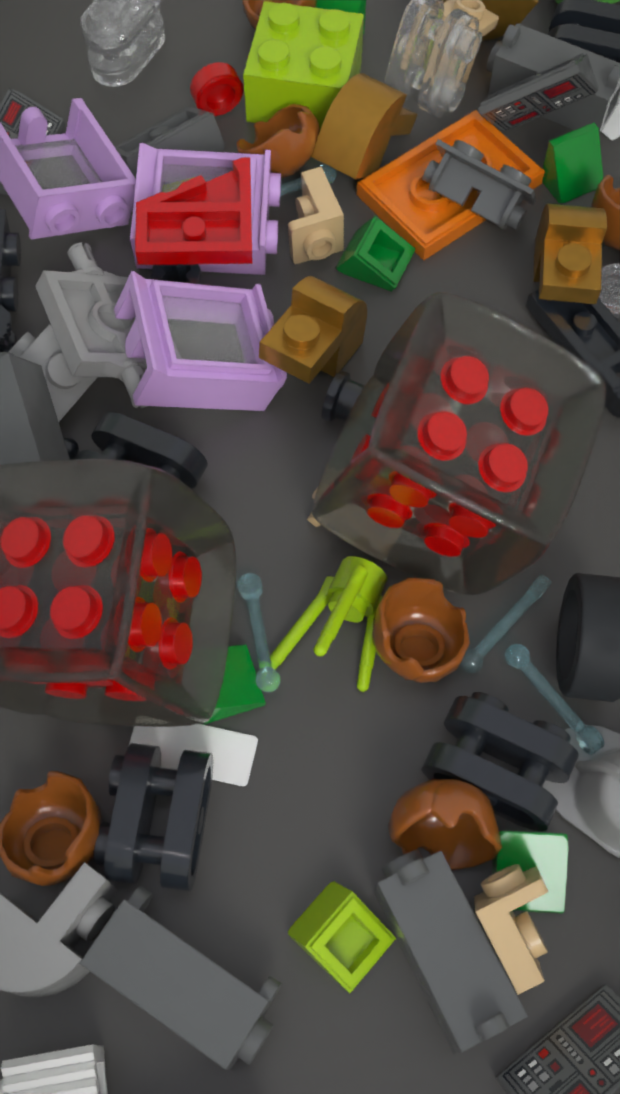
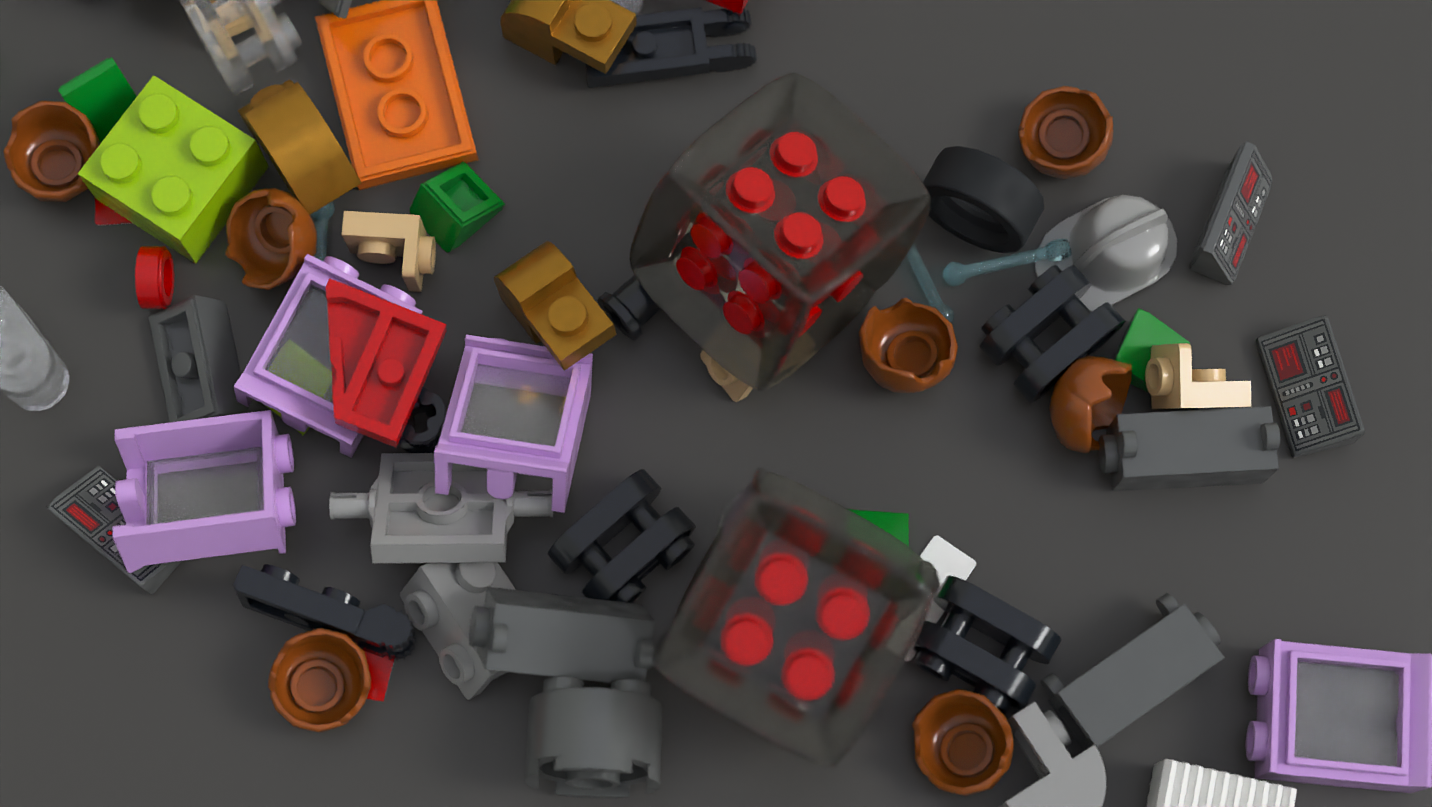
camera: 70 degrees left, 10 degrees up
(251, 588) = (890, 501): clear light blue hinge -> none
(341, 935) = (1137, 532): lime slope -> none
(350, 597) = (843, 389): lime plant -> none
(499, 190) = (413, 70): dark grey hinge -> none

